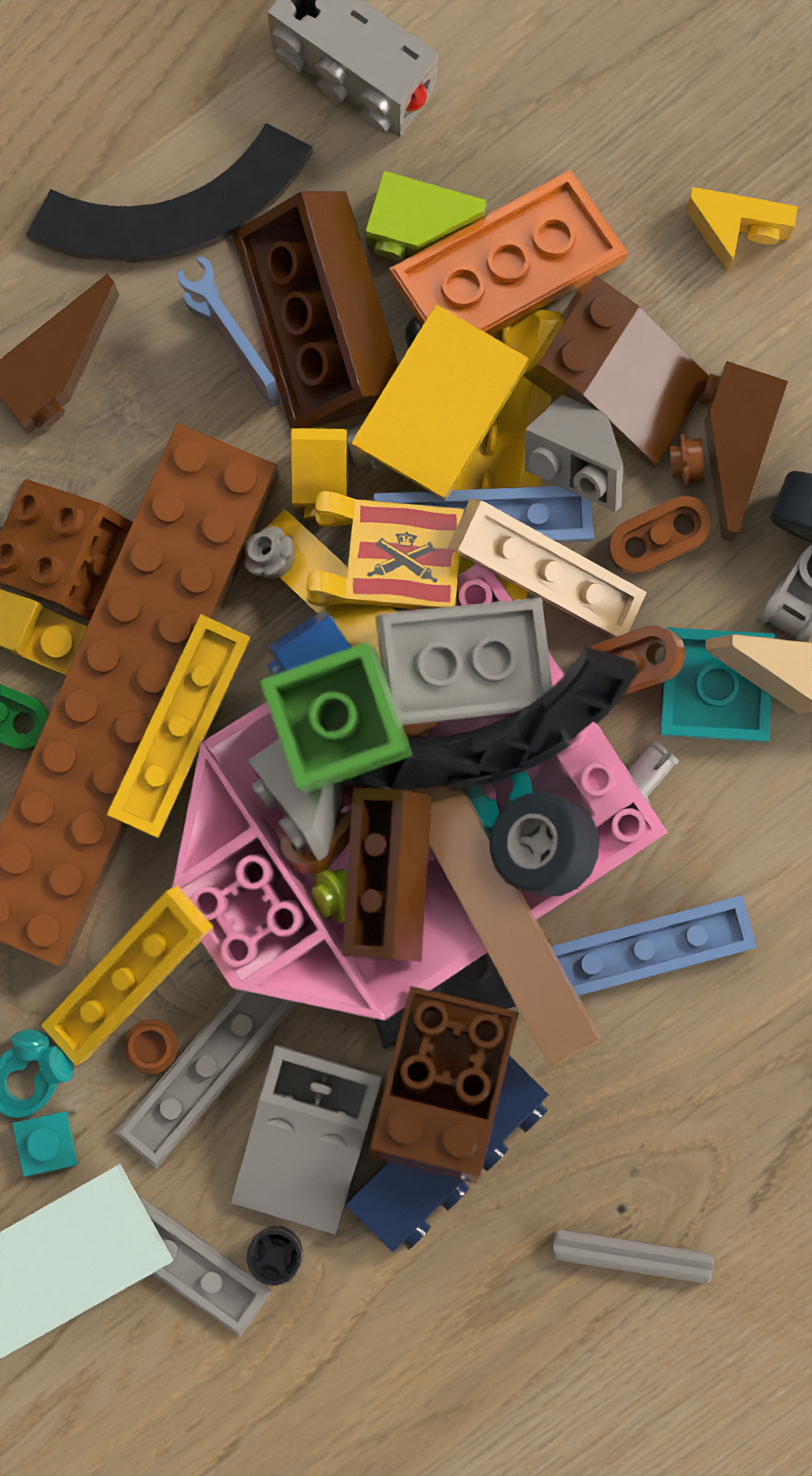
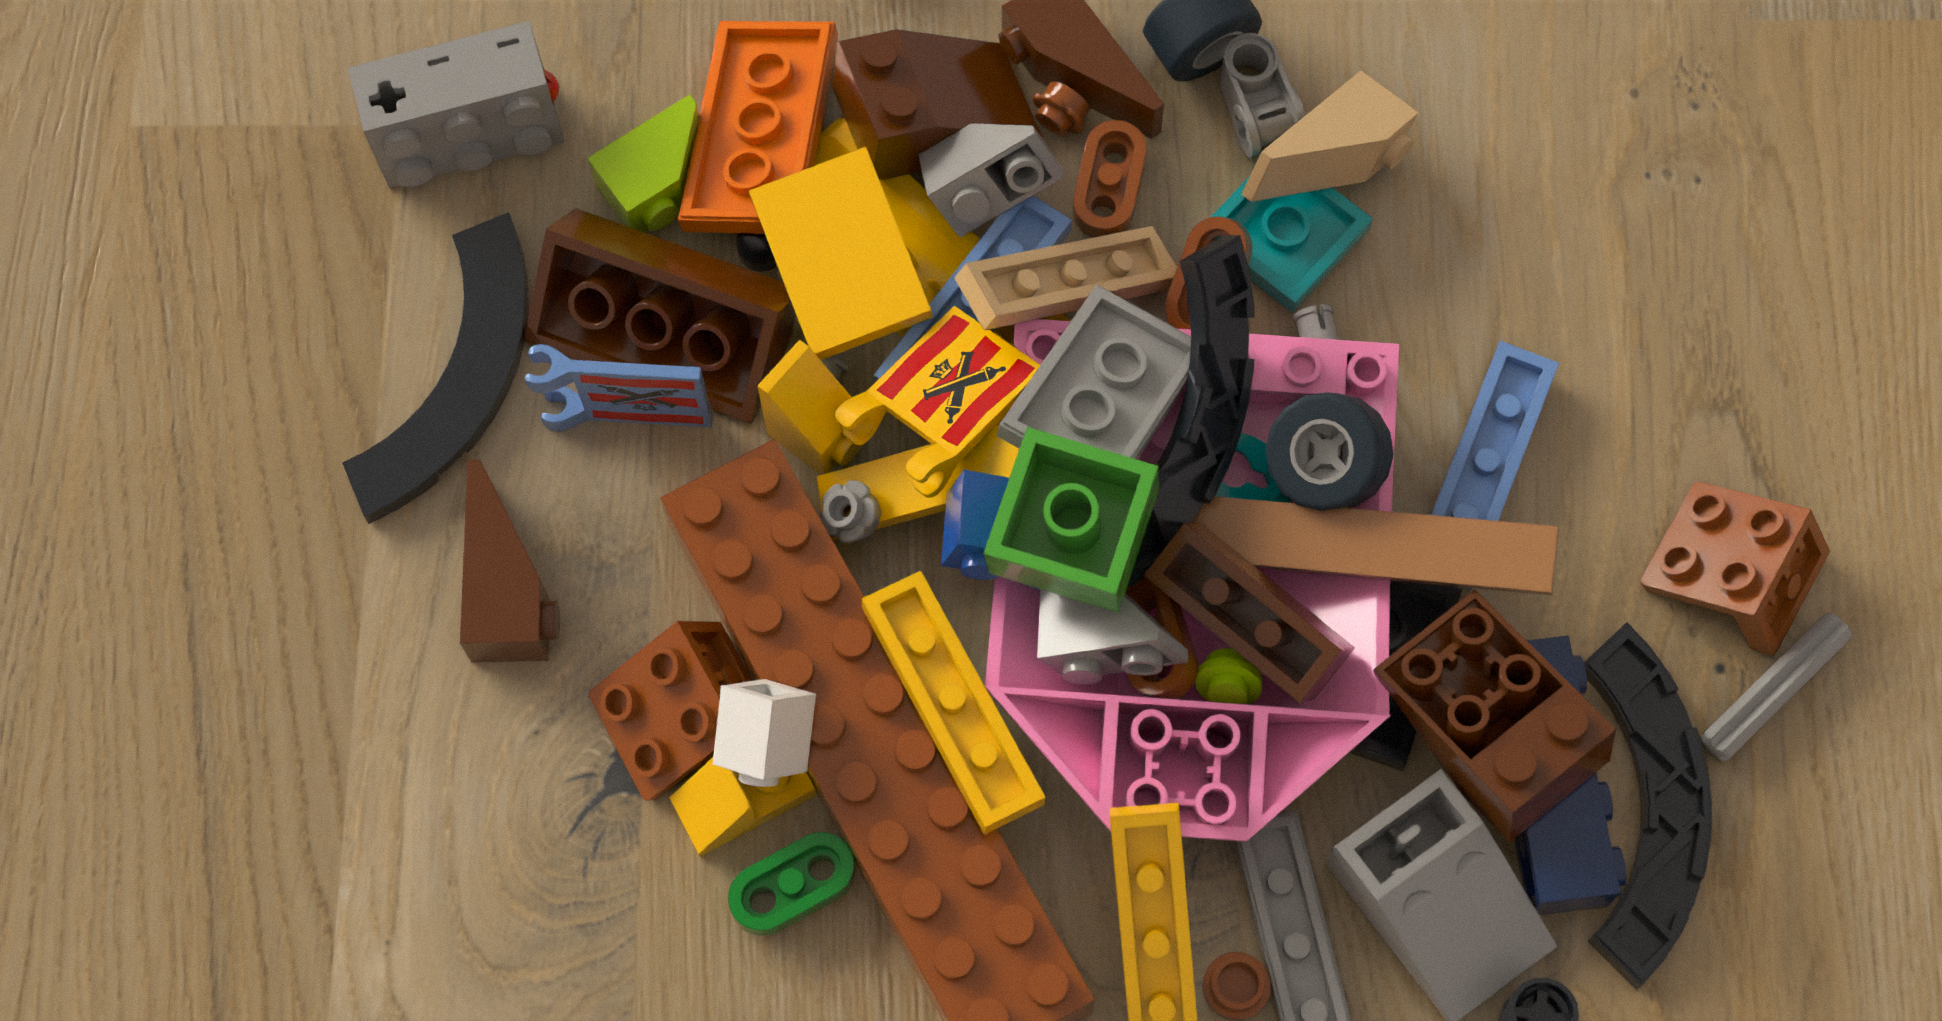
camera: 50 degrees left, 15 degrees down
(66, 620) = (763, 731): none -> white brick
(497, 1242) = (1673, 806): none -> black tile
(703, 1170) = (1740, 560): none -> dark orange bracket

